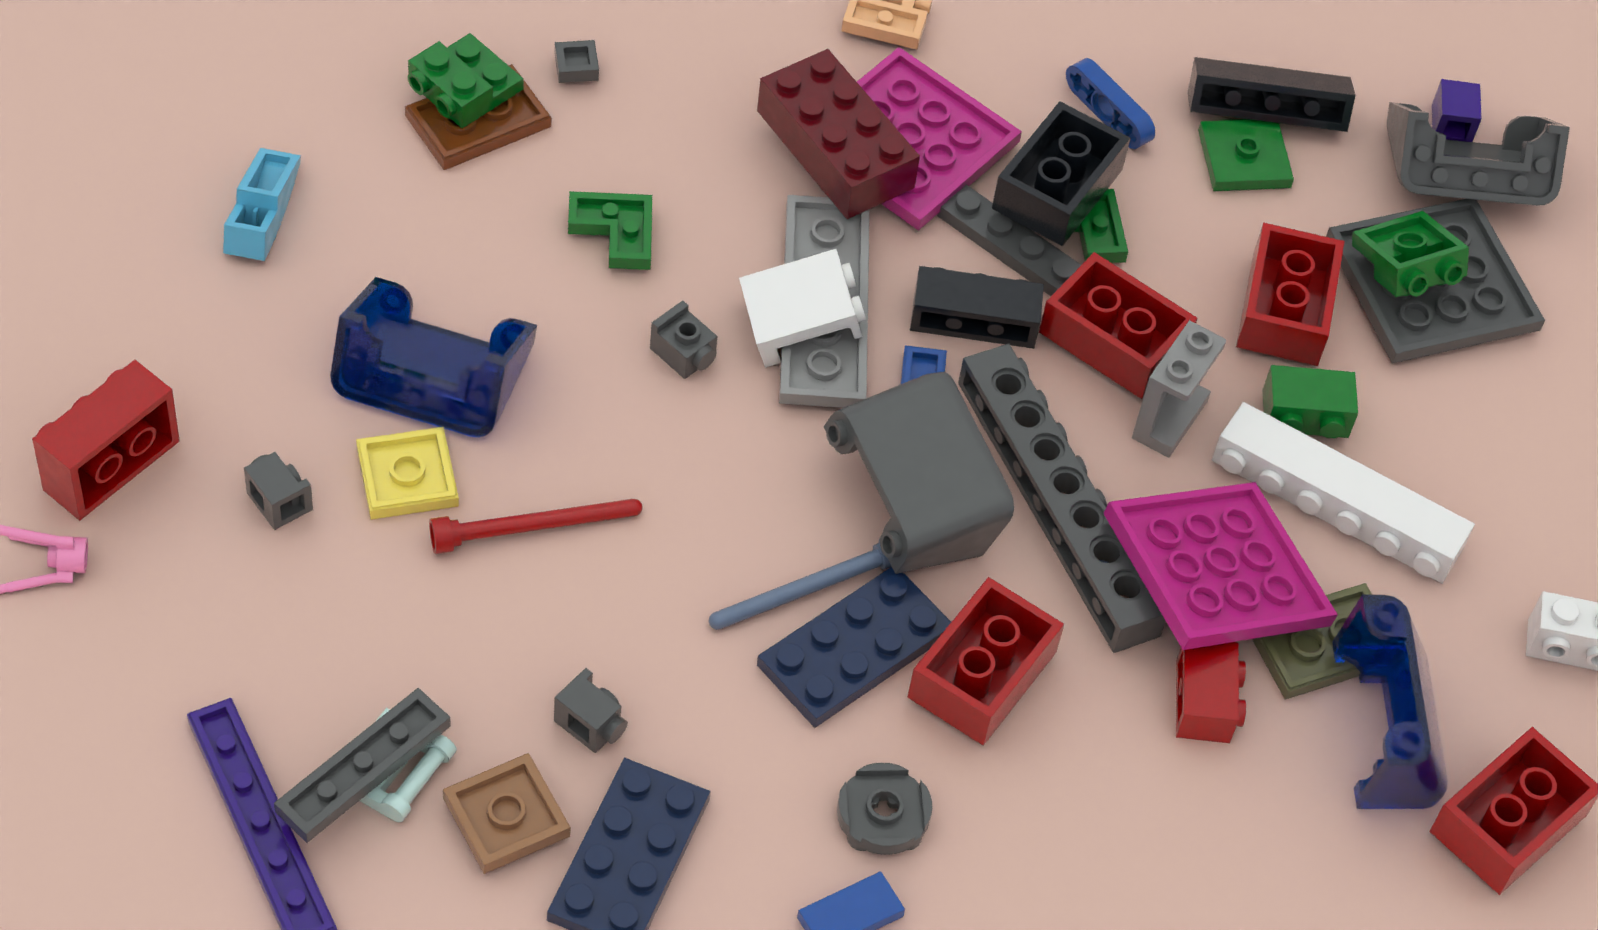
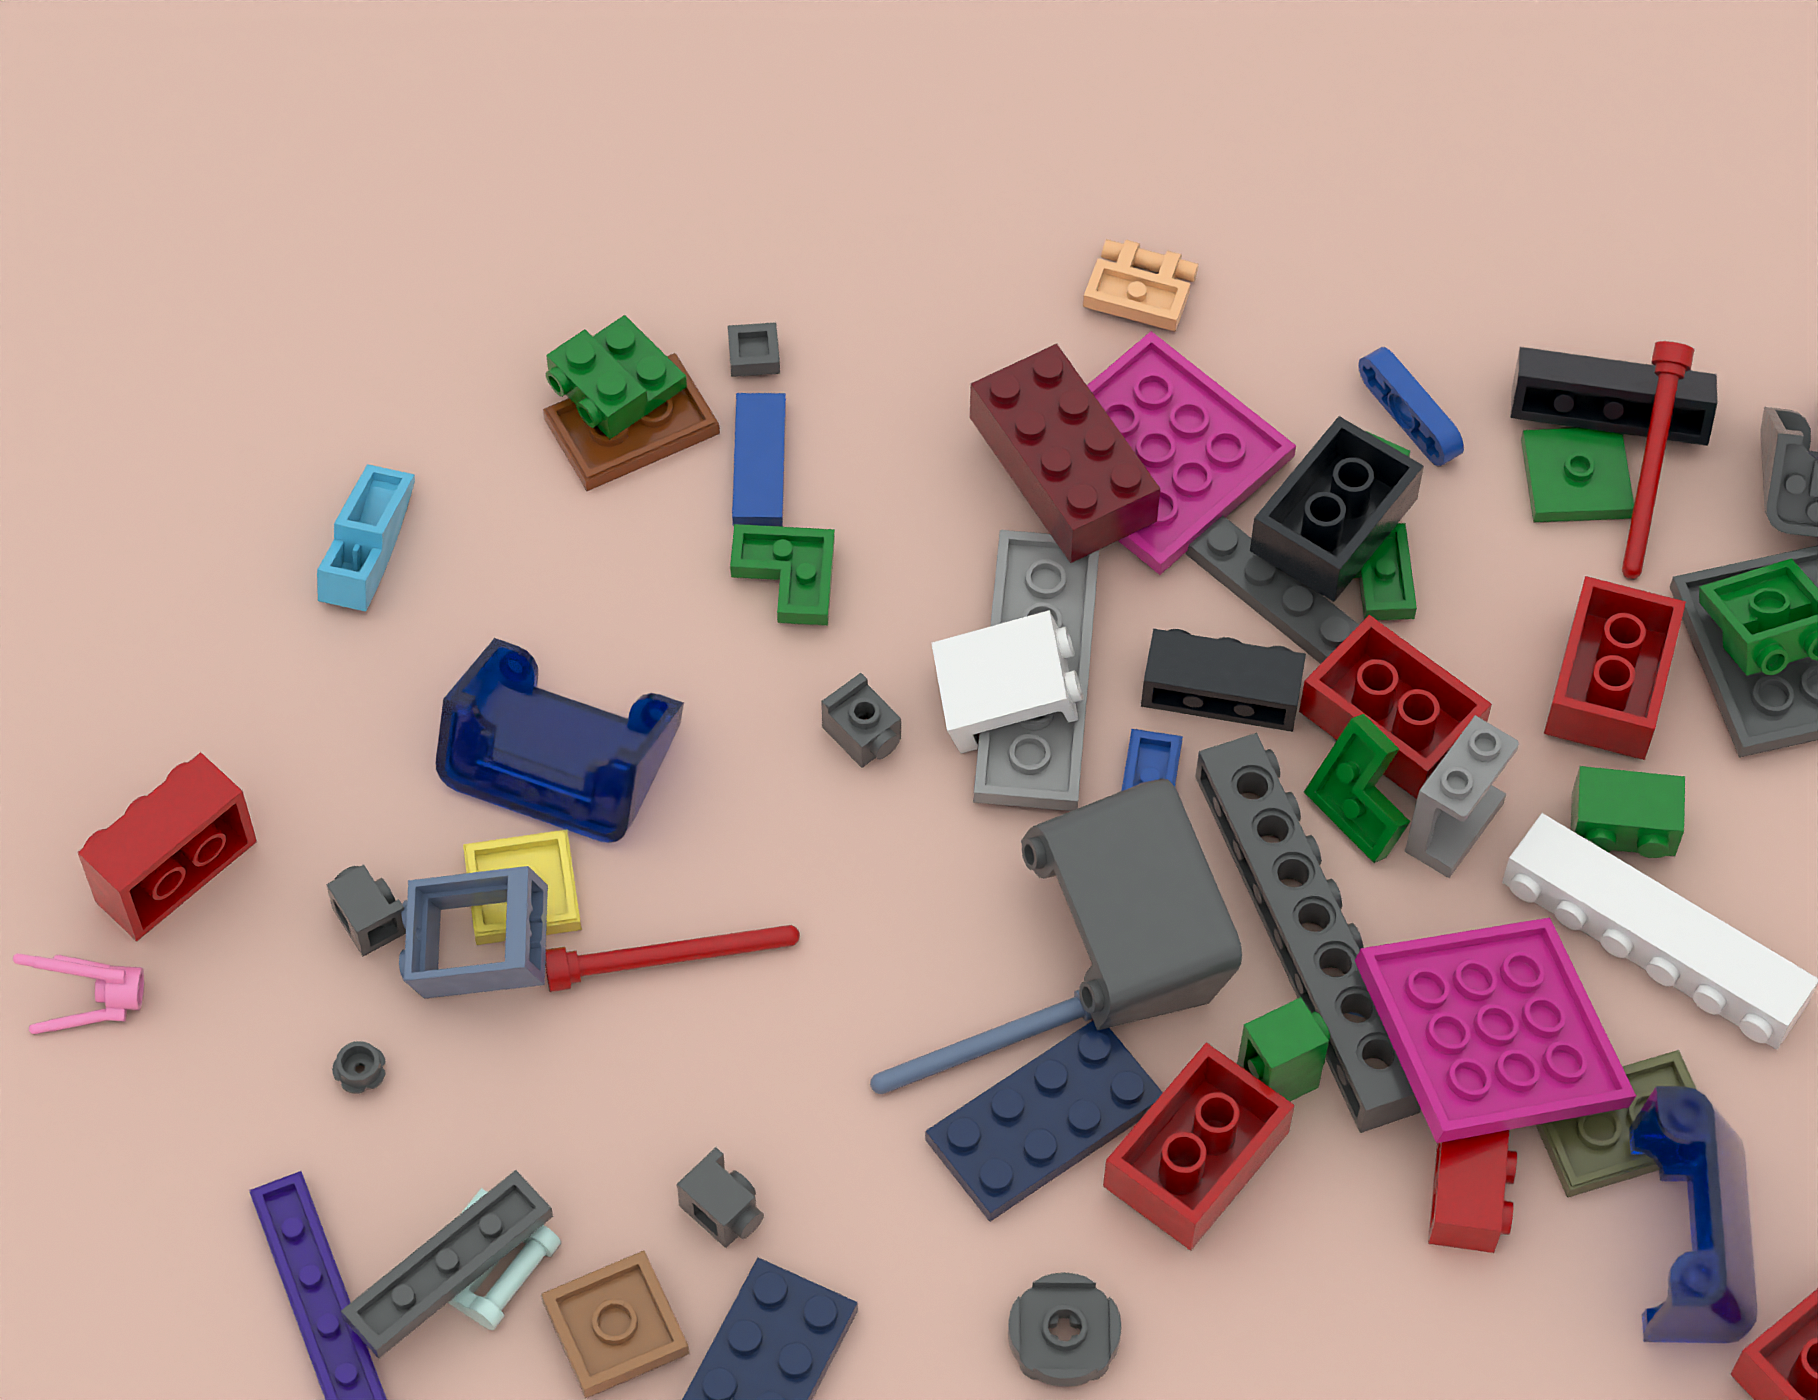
camera: 10 degrees right, 5 degrees up
(273, 605) = (358, 1054): none -> dark grey plate
(365, 470) = (524, 931): none -> sand blue window
(585, 143) = (759, 459): none -> blue tile
(1054, 580) = (1286, 1049): none -> green brick
(1084, 387) = (1348, 793): none -> green plate
(1318, 63) = (1670, 364): none -> red piece

